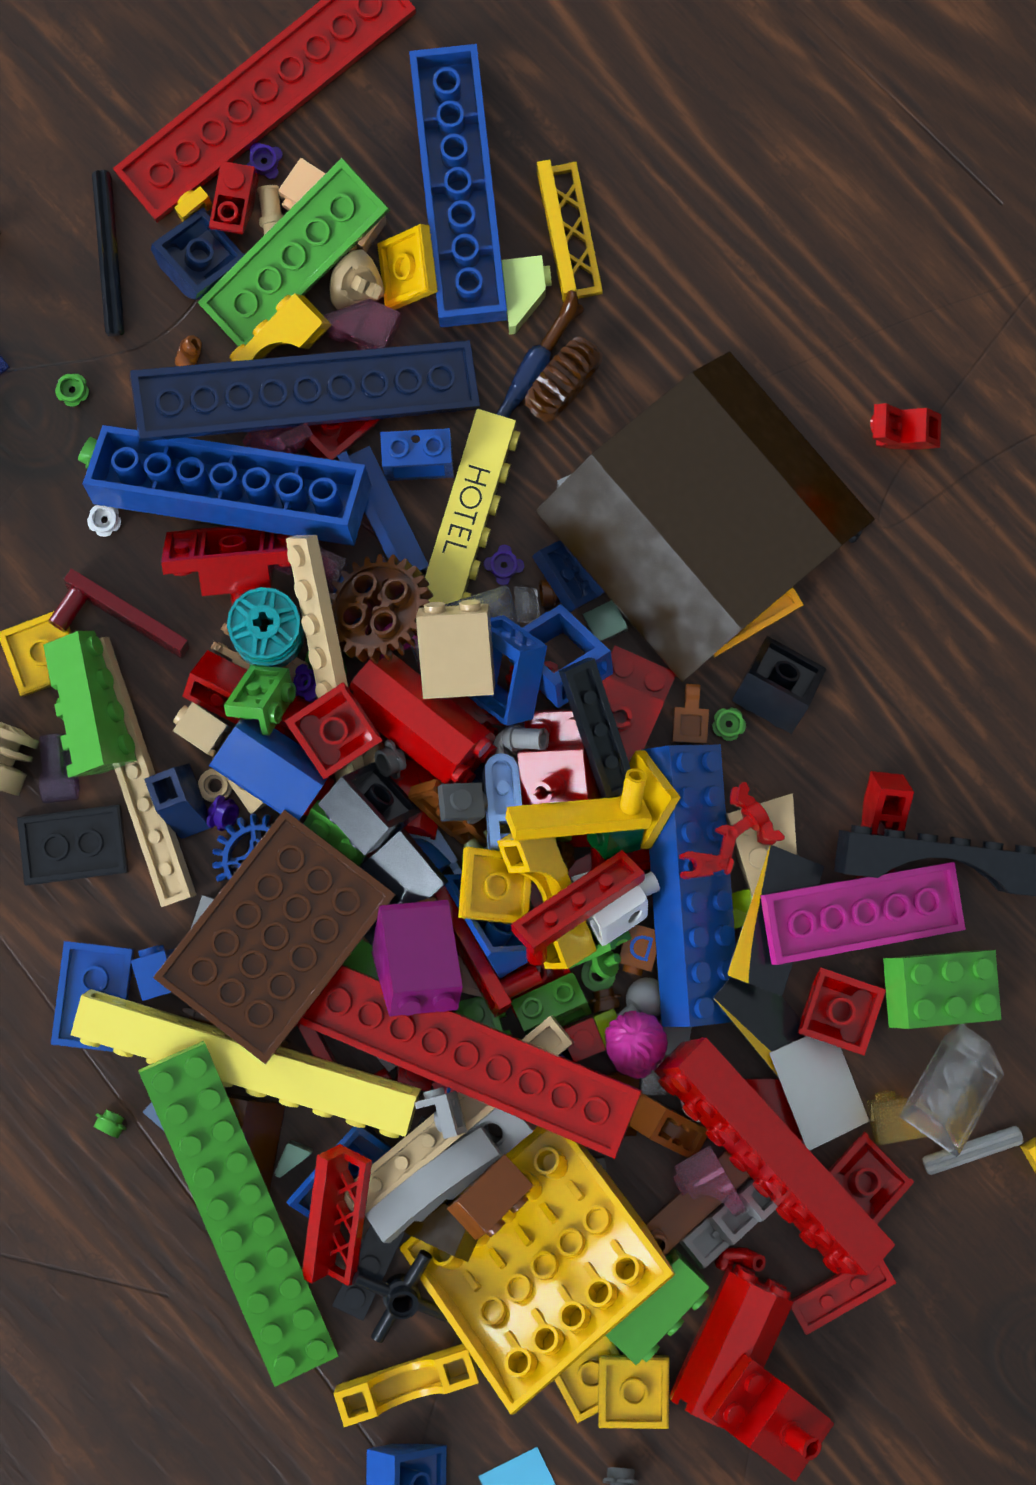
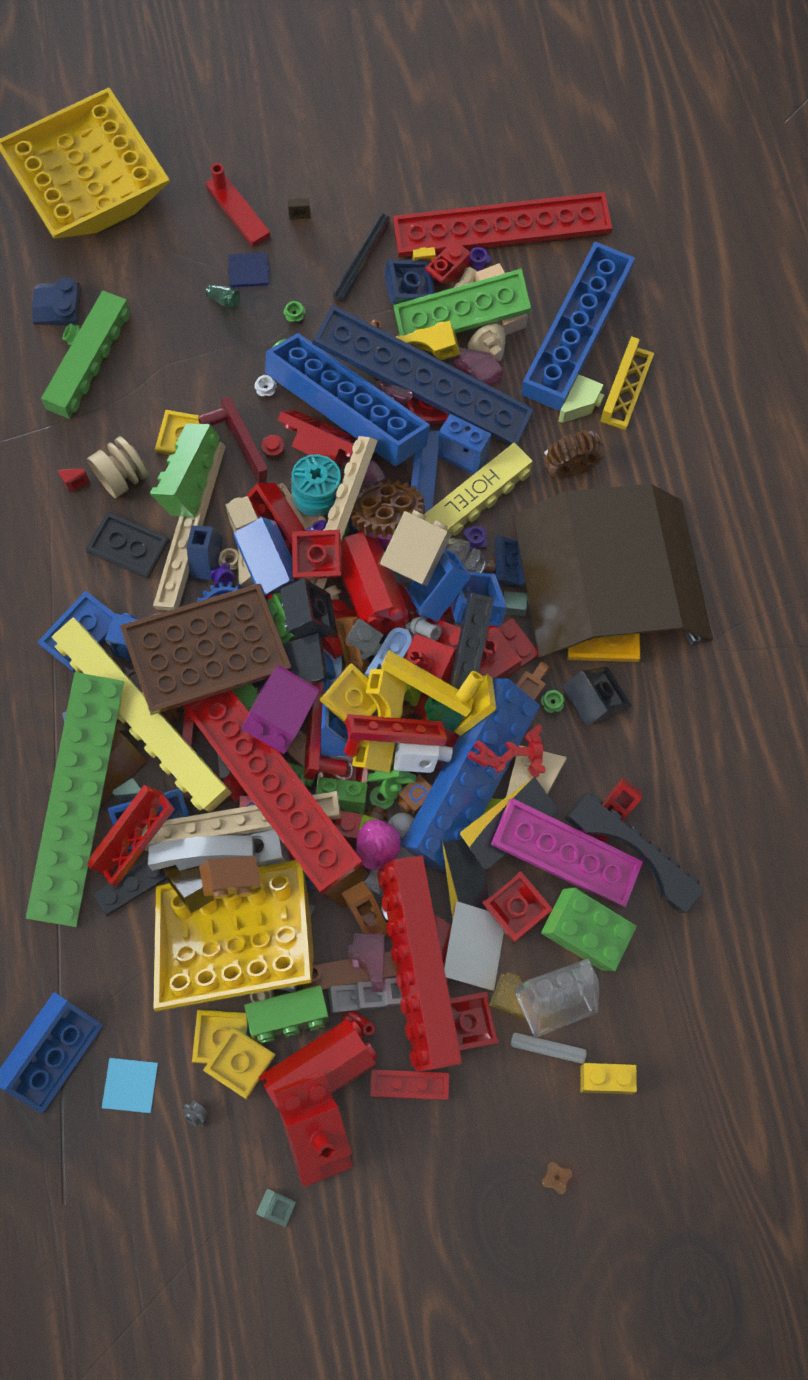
camera: 30 degrees right, 15 degrees down
(54, 780) = (143, 504): piece -> none
(110, 1123) = (39, 708): bright green plate -> none
(168, 597) = (272, 445): none -> red plate
(262, 695) = (288, 516): bright green bracket -> none
(387, 1388) = (103, 967): yellow arch -> none
(390, 760) = (338, 595): dark grey plate -> none
(398, 1285) = (145, 906): black bar -> none
(407, 267) = (523, 349): yellow tile -> none
(448, 1111) = (238, 810): light grey bracket -> none
(539, 356) = (600, 424): dark blue piece -> none
(905, 428) = (761, 597): red brick -> none

